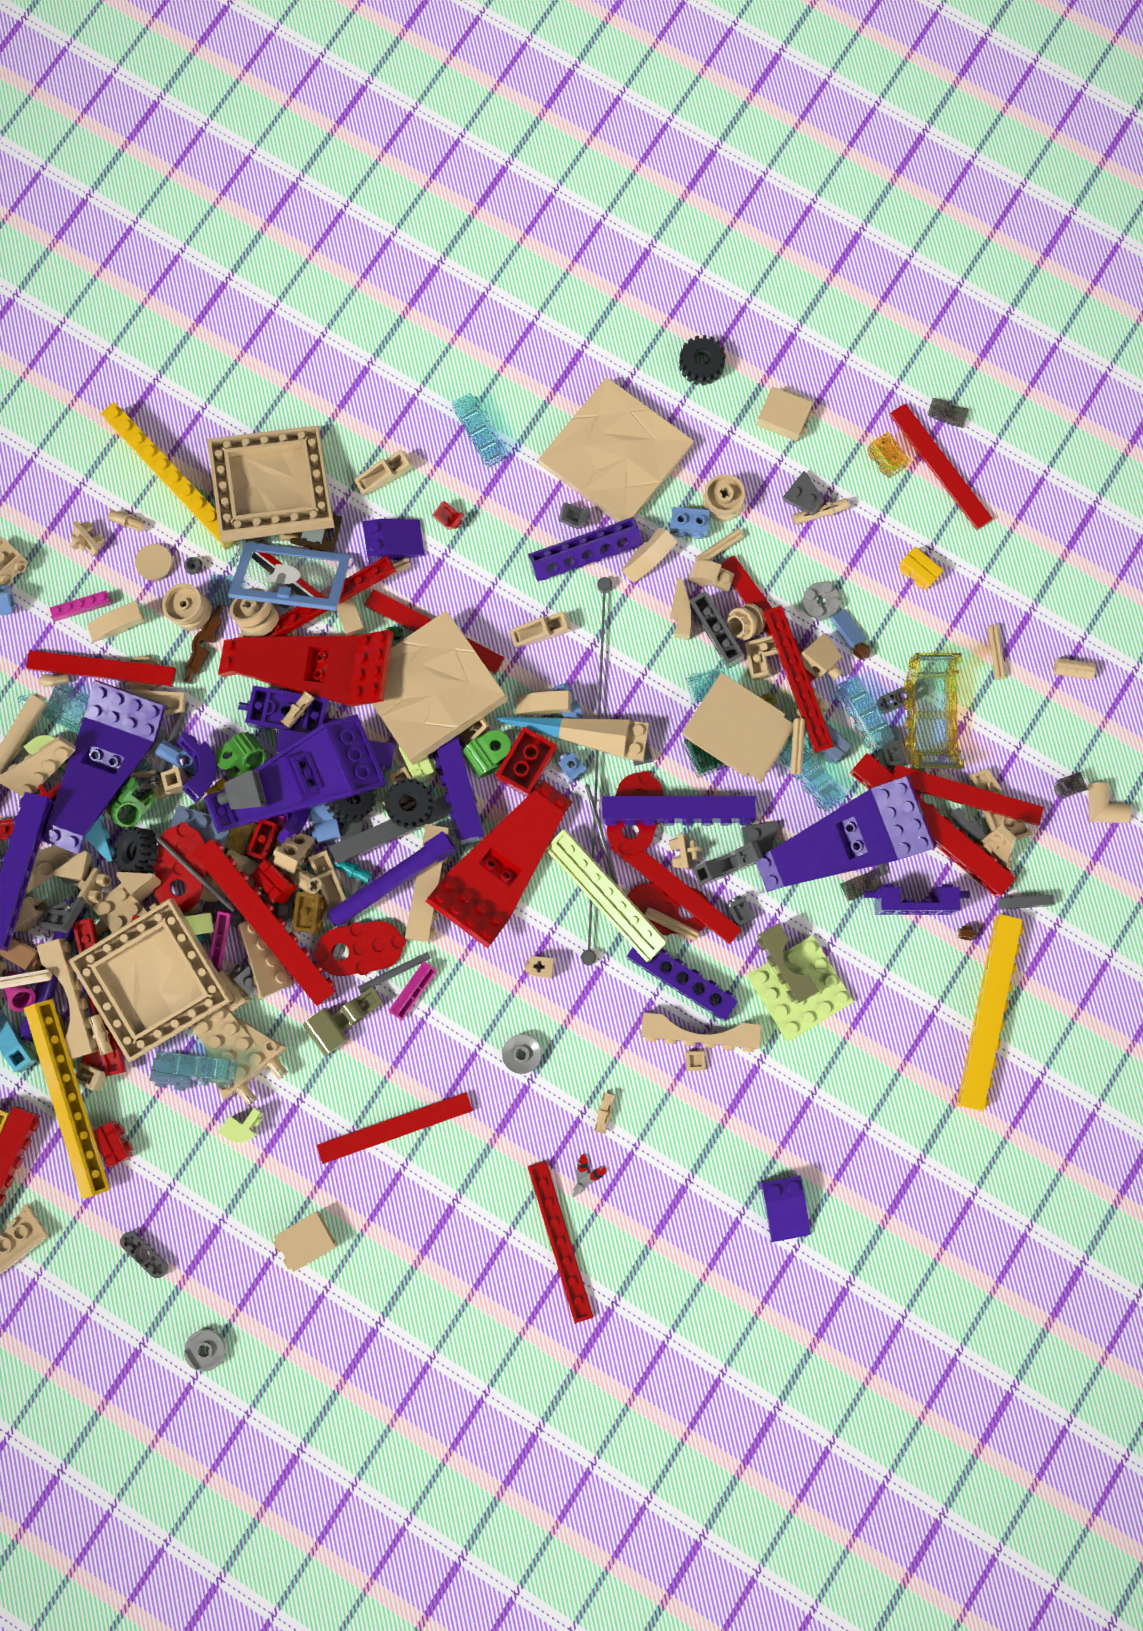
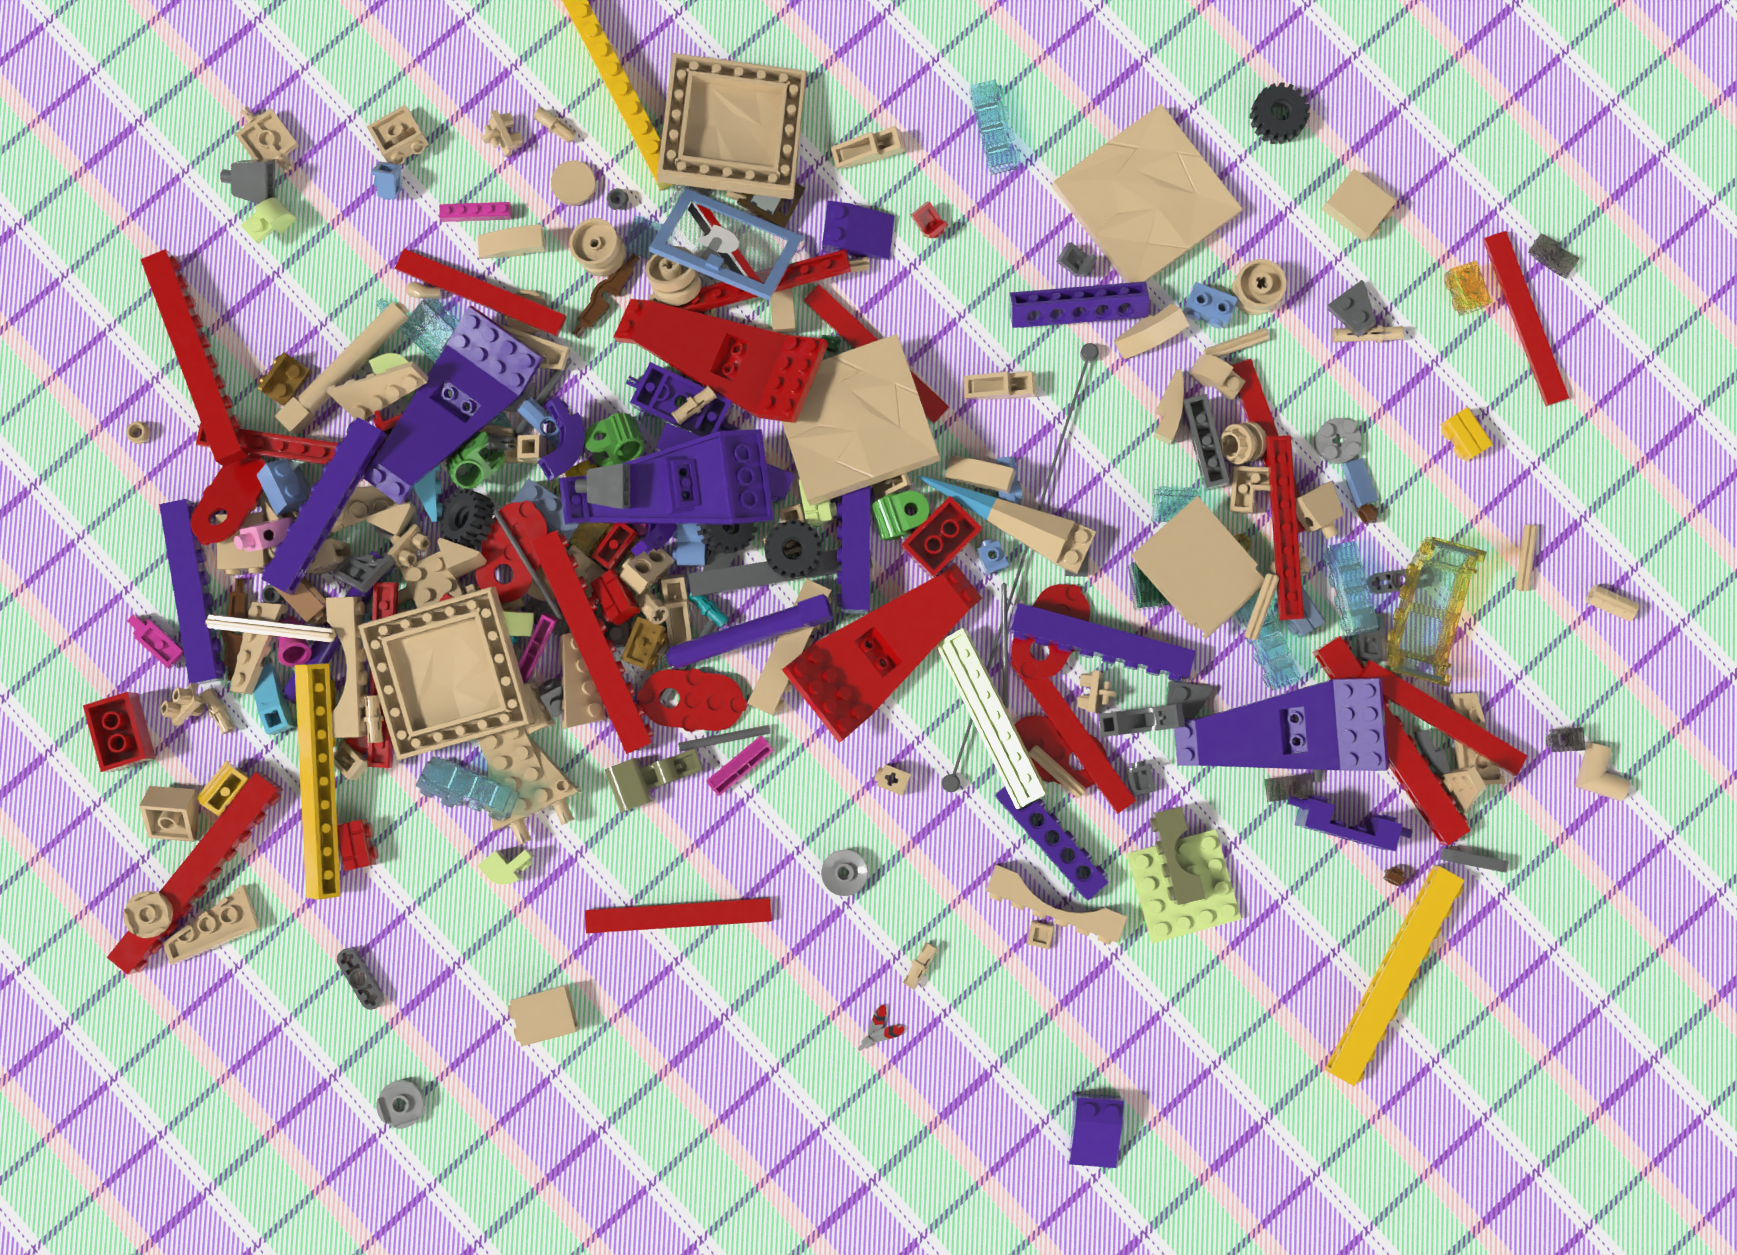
camera: 15 degrees right, 5 degrees up
(560, 1242) = (830, 1096): red tile -> none

